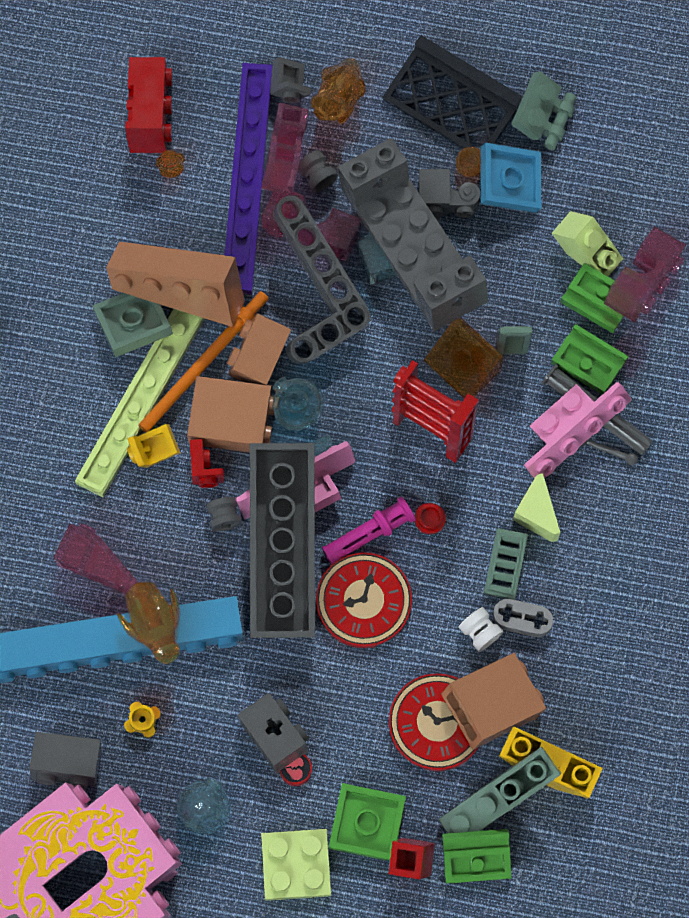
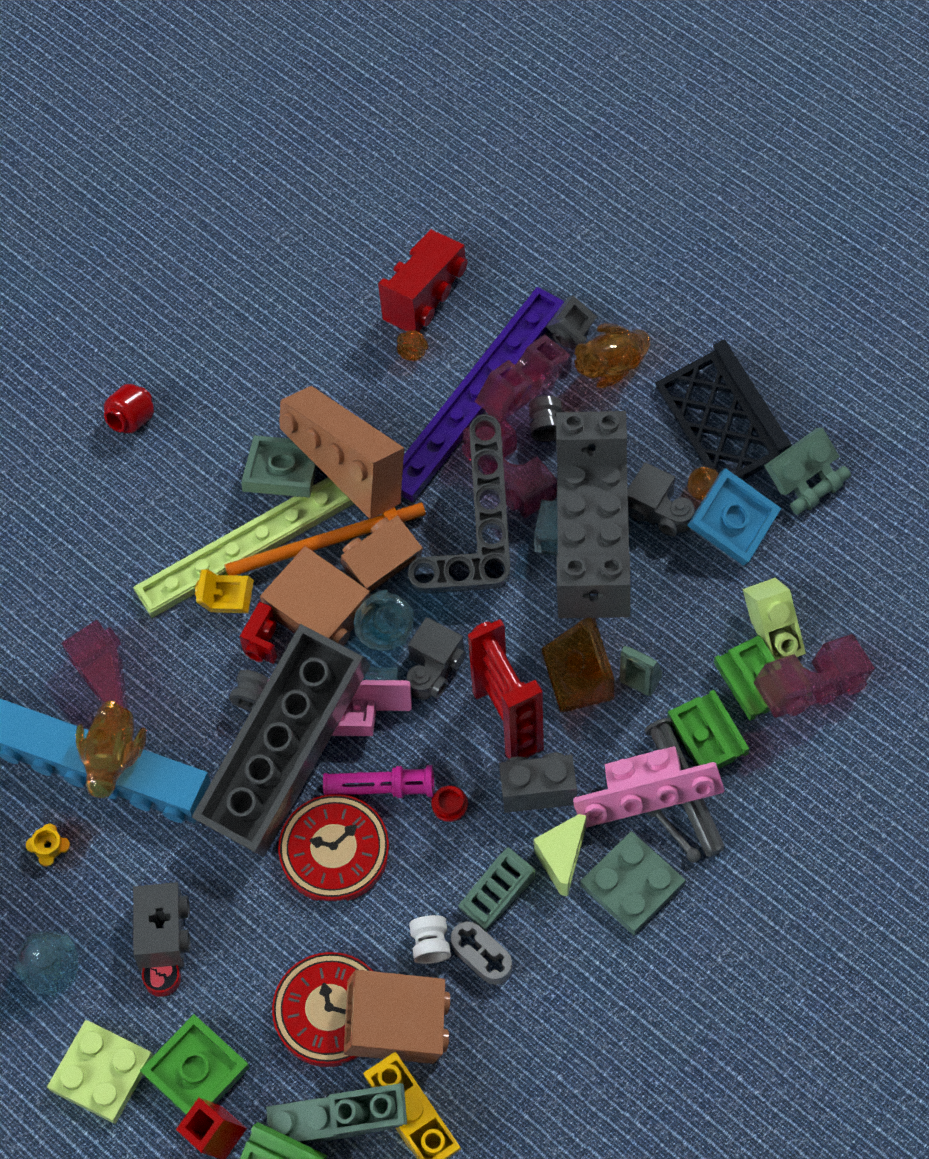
camera: 35 degrees right, 10 degrees down
(348, 404) = (437, 653): none -> dark grey brick
(489, 466) = (538, 782): none -> dark grey brick
(600, 504) = (632, 883): none -> sand green plate

